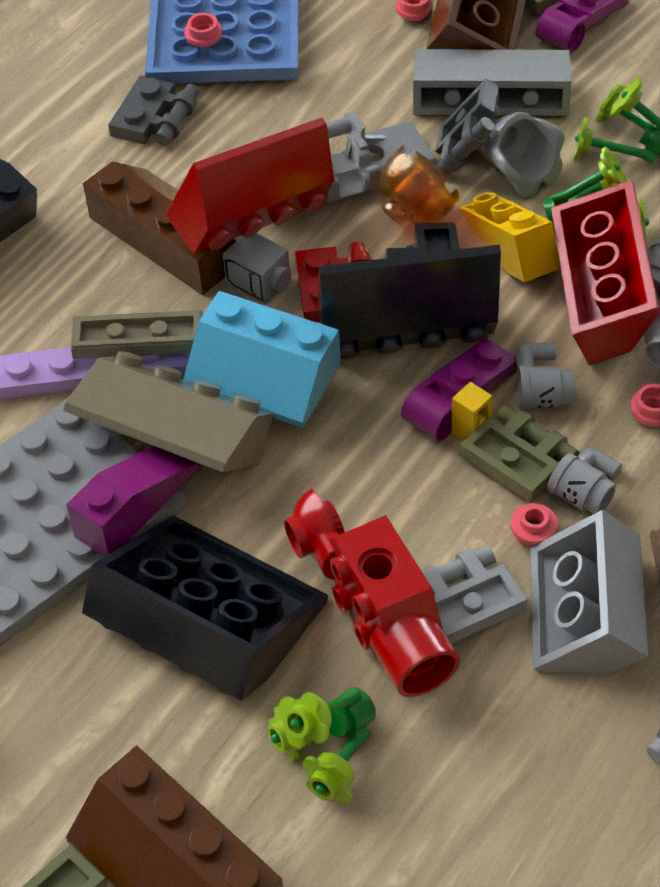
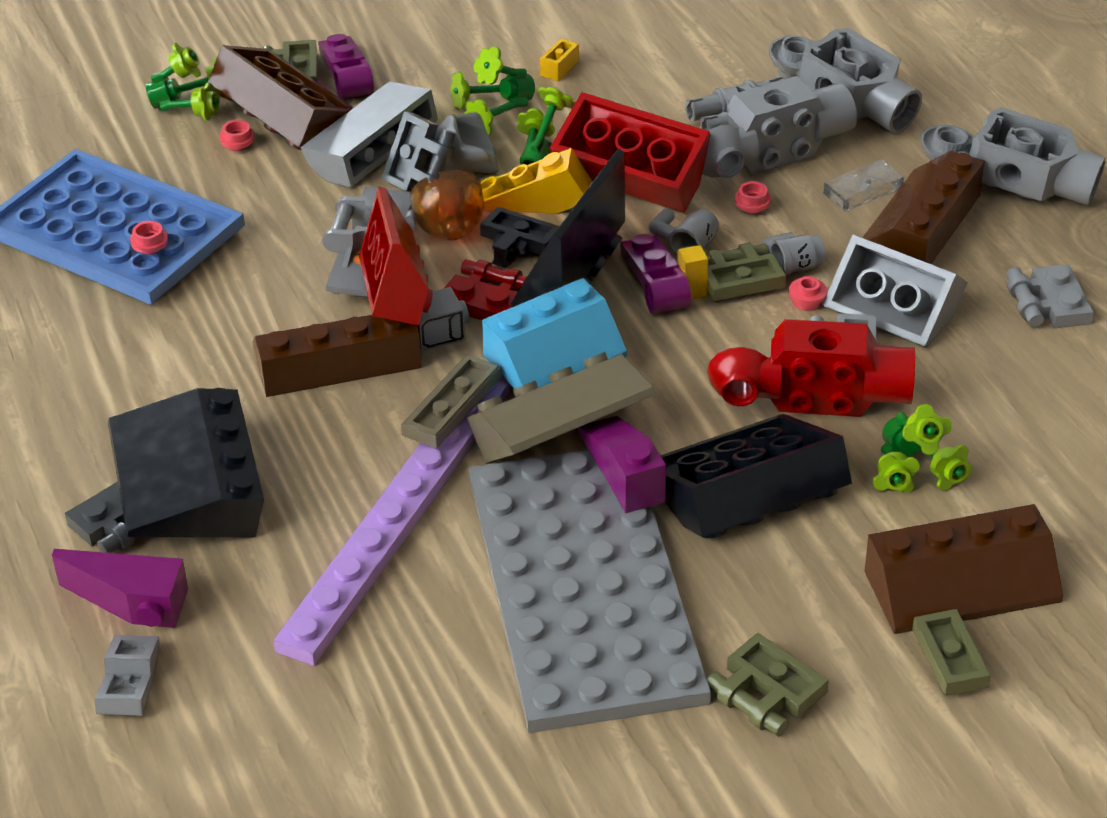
camera: 60 degrees left, 10 degrees down
(145, 108) = (181, 319): dark grey plate -> none

